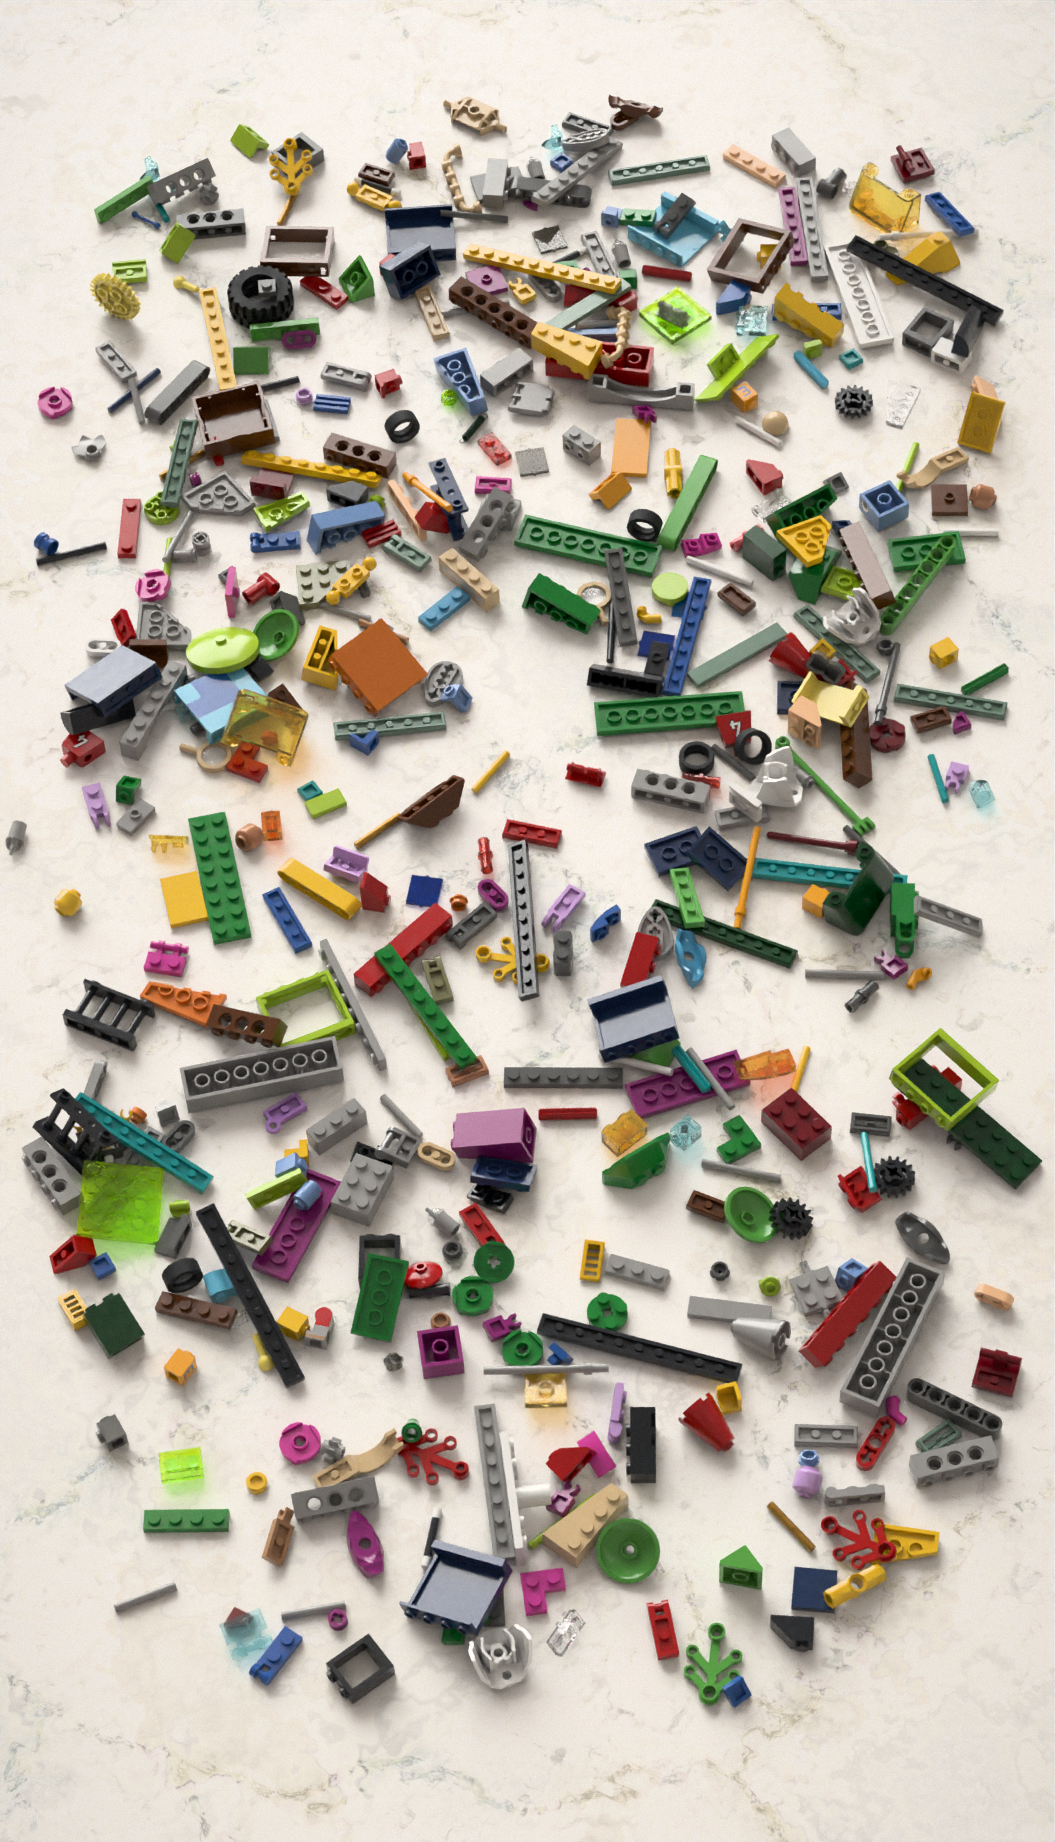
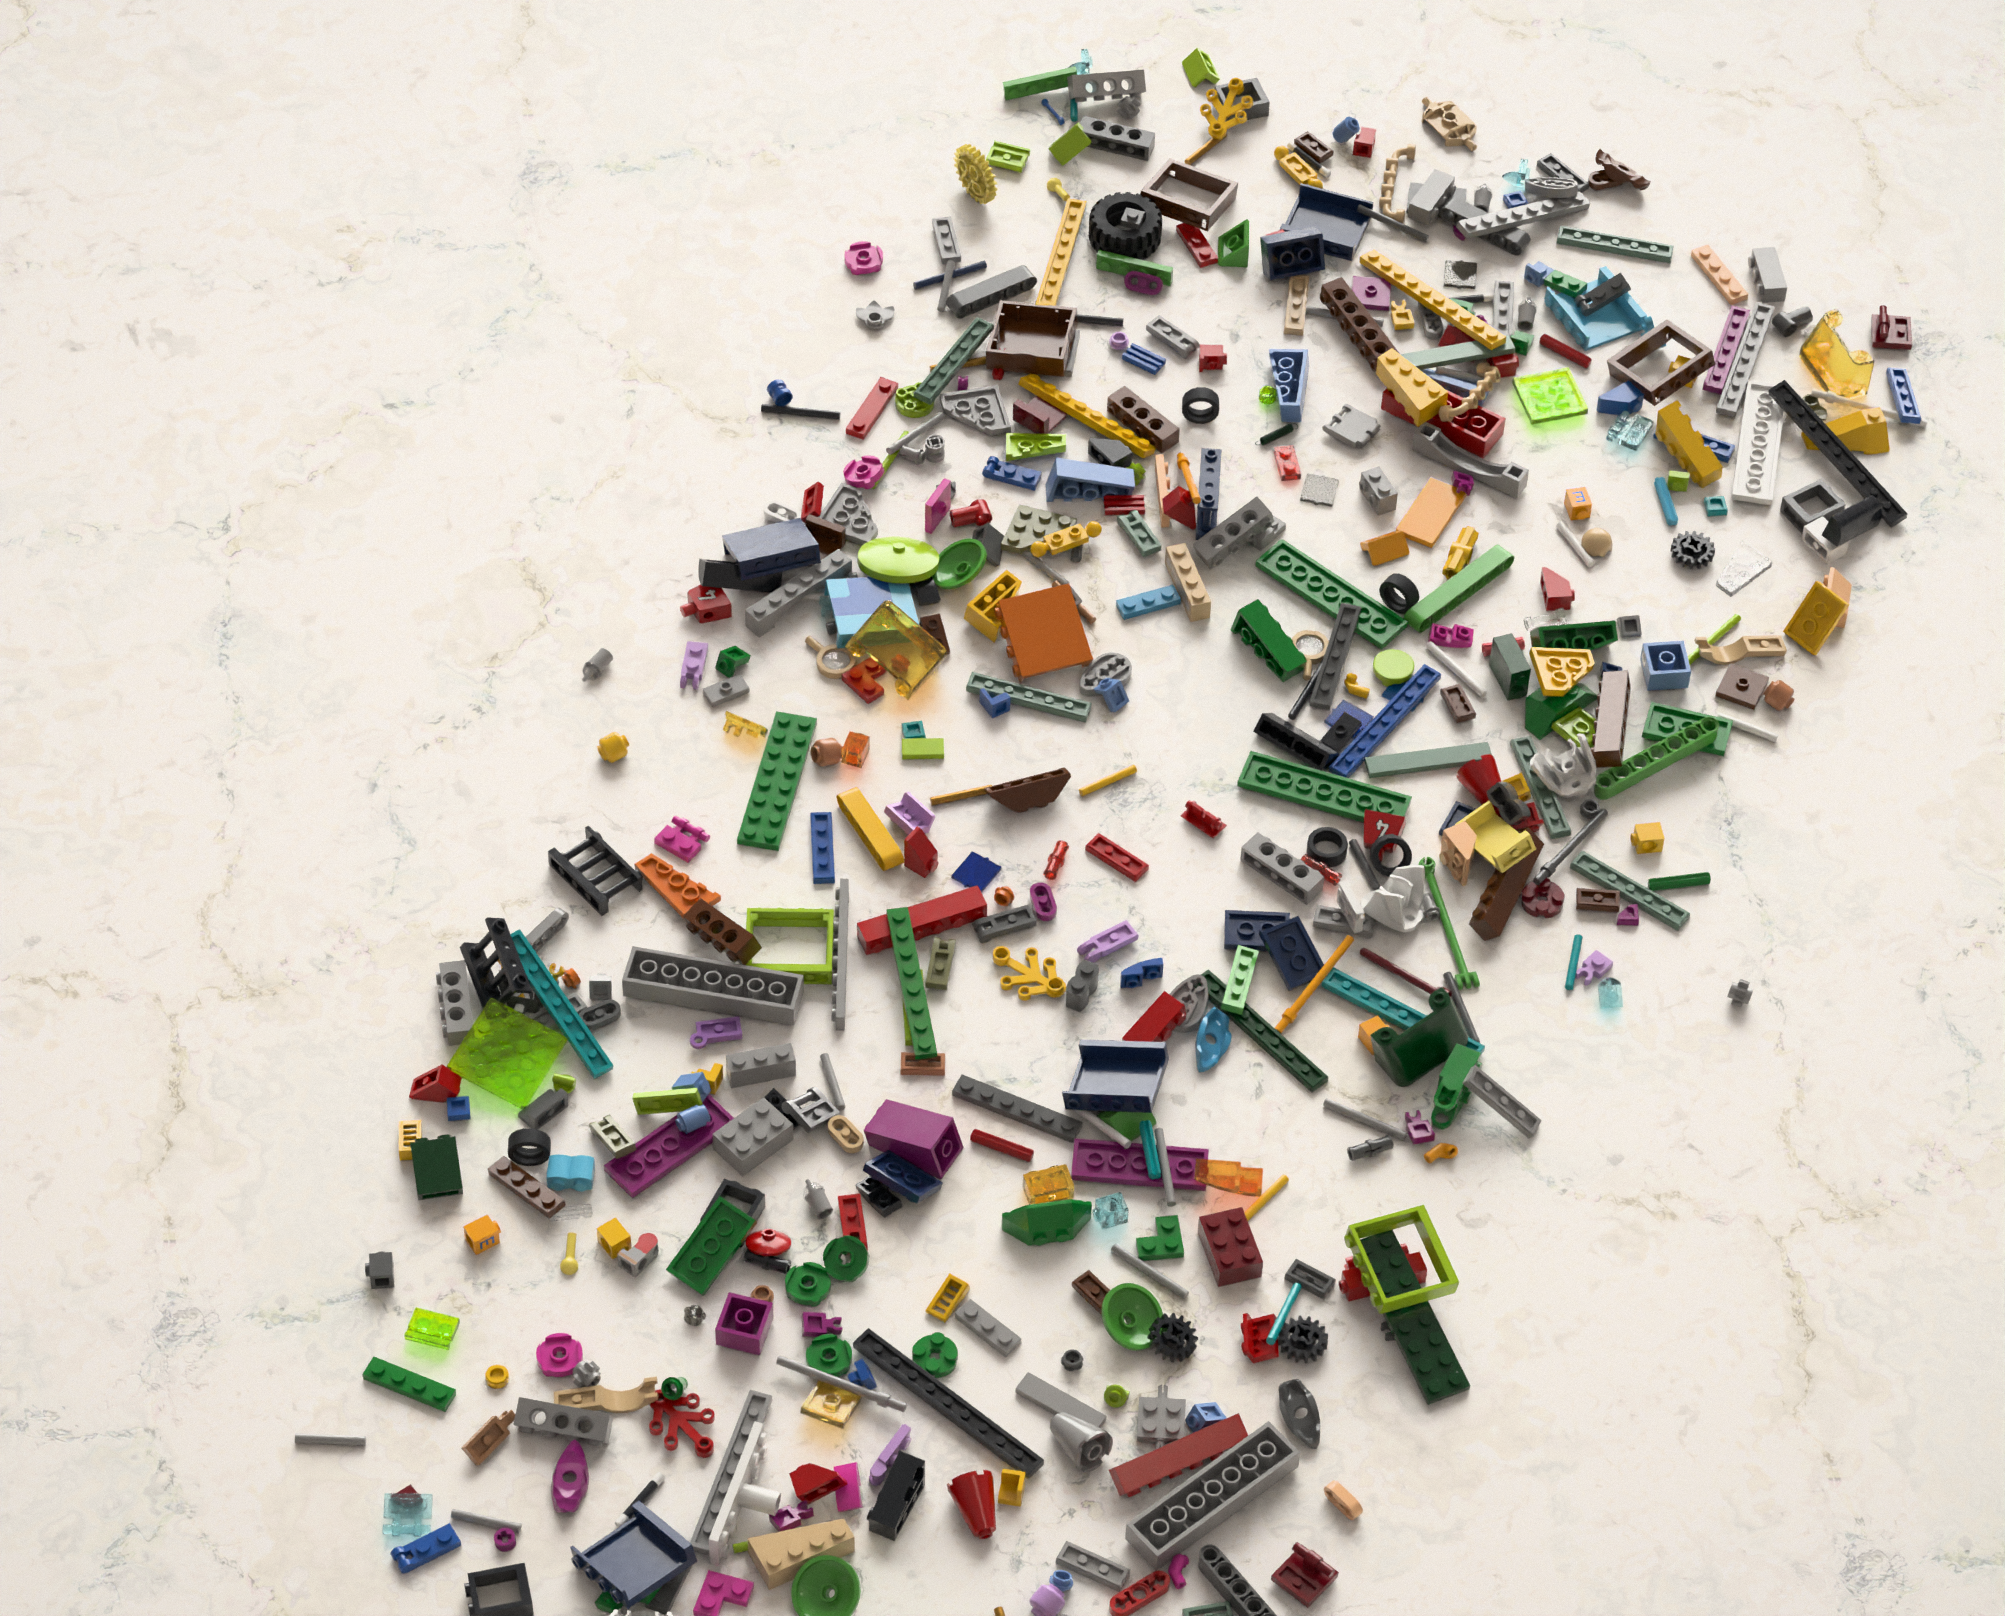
camera: 20 degrees right, 5 degrees down
(184, 899) = (730, 788): yellow tile -> none
(250, 1296) = (583, 1192): black plate -> none
(251, 360) = (1084, 286): bright green slope -> none
(452, 1245) = (811, 1226): dark grey plate -> none
(481, 488) = (1265, 497): dark pink tile -> none
(506, 372) = (1340, 390): brick -> none
(523, 921) = (1058, 938): plate -> none
(673, 315) = (1545, 393): clear smoke hinge -> none
(729, 366) = (1579, 465): lime bracket -> none

